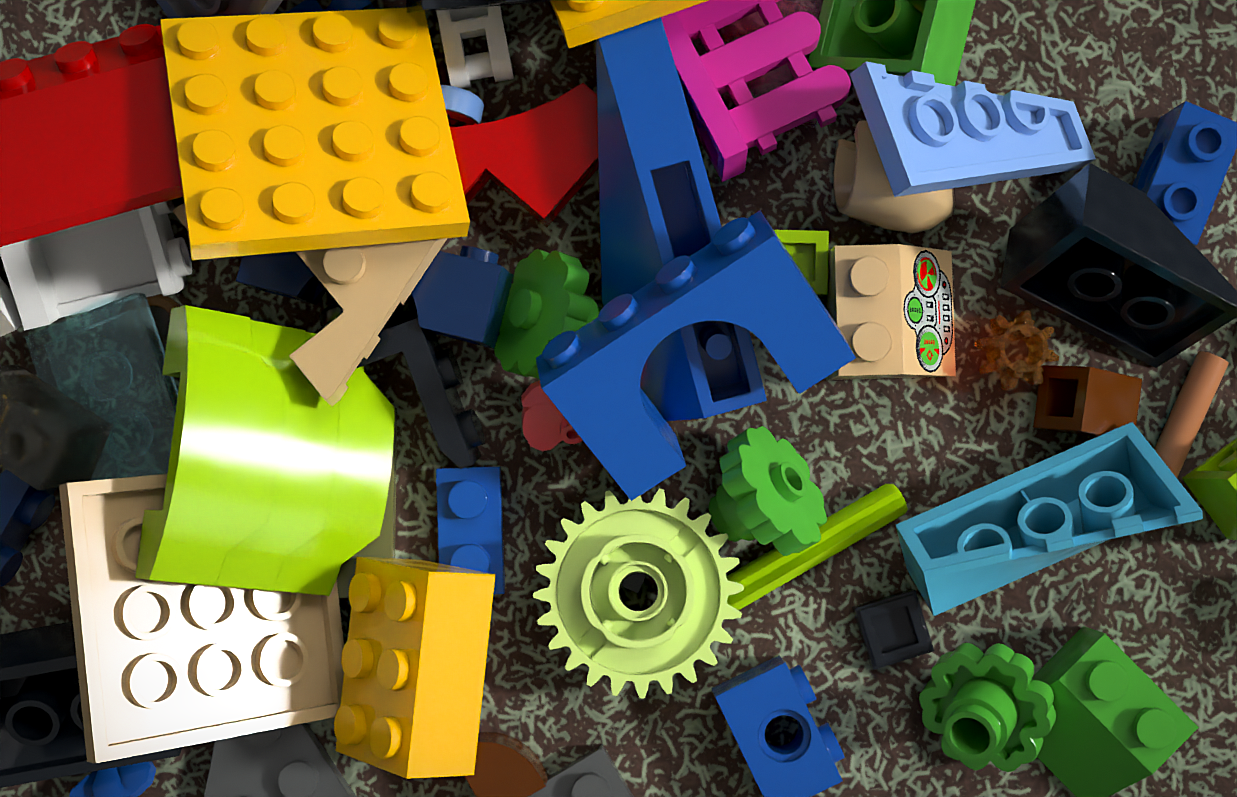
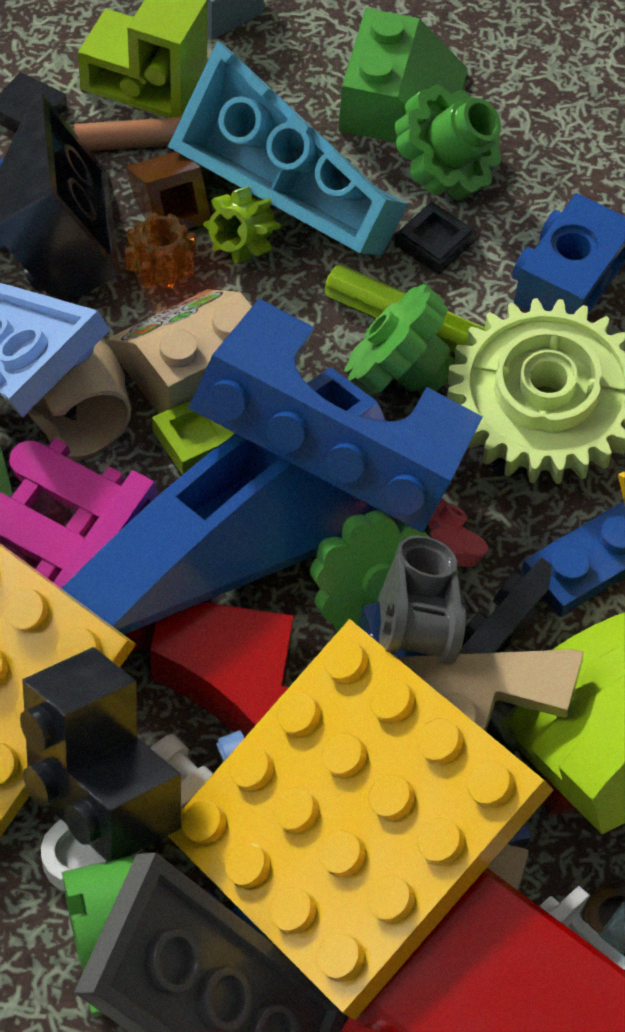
camera: 125 degrees left, 30 degrees down
(433, 280) = (422, 601): none -> dark grey piece
(1001, 440) = (241, 224): none -> lime gear

